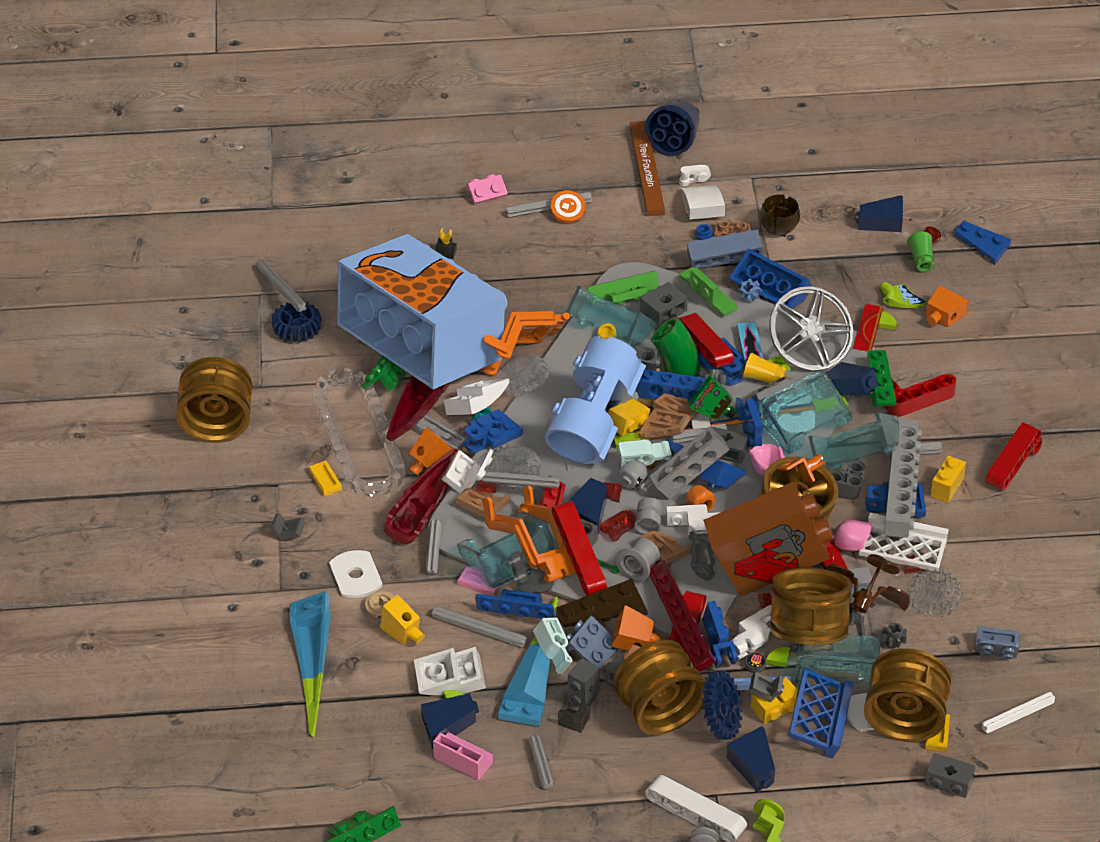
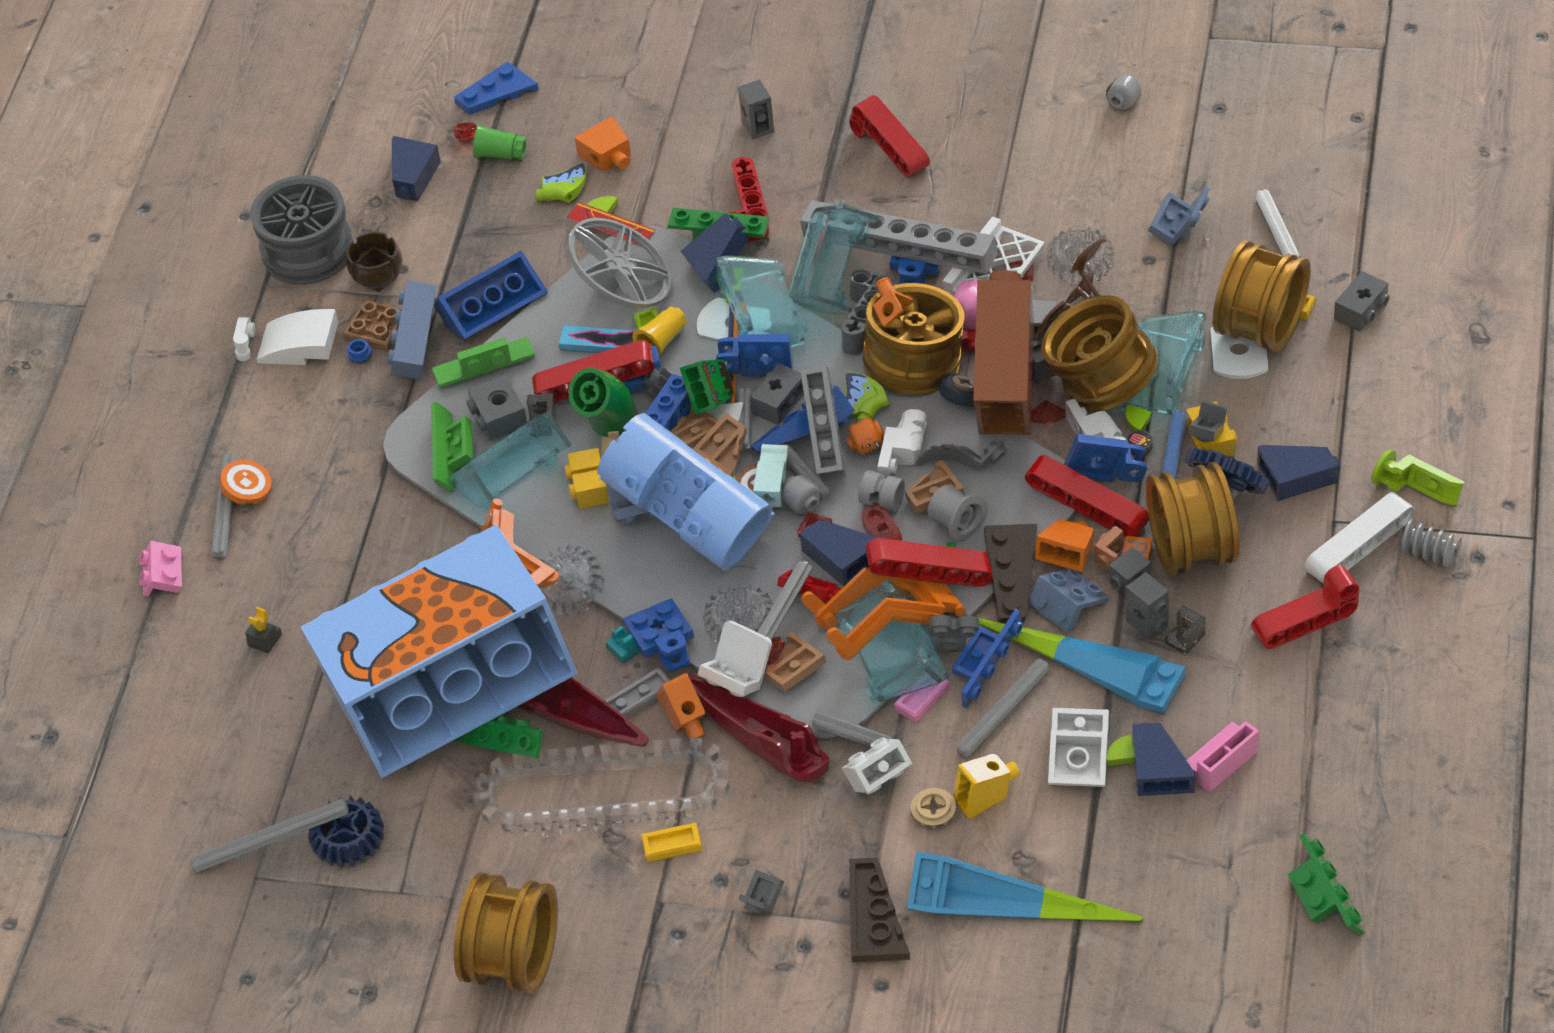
camera: 70 degrees left, 5 degrees up
(280, 589) = (874, 924): none -> dark brown wing
(355, 587) = (842, 843): white piece -> none
(401, 562) = (880, 763): none -> white brick
(475, 396) = (593, 638): white slope -> none
(541, 762) = (1245, 679): light grey axle -> none
(553, 643) = (1070, 625): light aqua piece -> none
(607, 330) = (520, 479): yellow tile -> none
(622, 796) = (1310, 612): none -> red beam
(647, 169) = (198, 387): dark orange tile -> none
(648, 357) = (609, 430): dark grey brick -> none
(673, 127) = (151, 331): dark blue cone -> none
(681, 616) = (1075, 481): dark red tile -> none
(740, 493) = (864, 395): none -> lime arm
(750, 290) = (504, 310): medium blue gear -> none
(764, 456) = (825, 351): bright pink hair -> none
(773, 387) = (714, 318): tile -> none
(793, 168) = (301, 229): none -> dark grey wheel
(838, 713) = (1241, 377): blue fence -> none
(894, 635) = (1139, 303): dark grey gear -> none
(948, 479) = (901, 200): yellow piece -> none
(1008, 375) = (756, 109): none -> dark grey brick

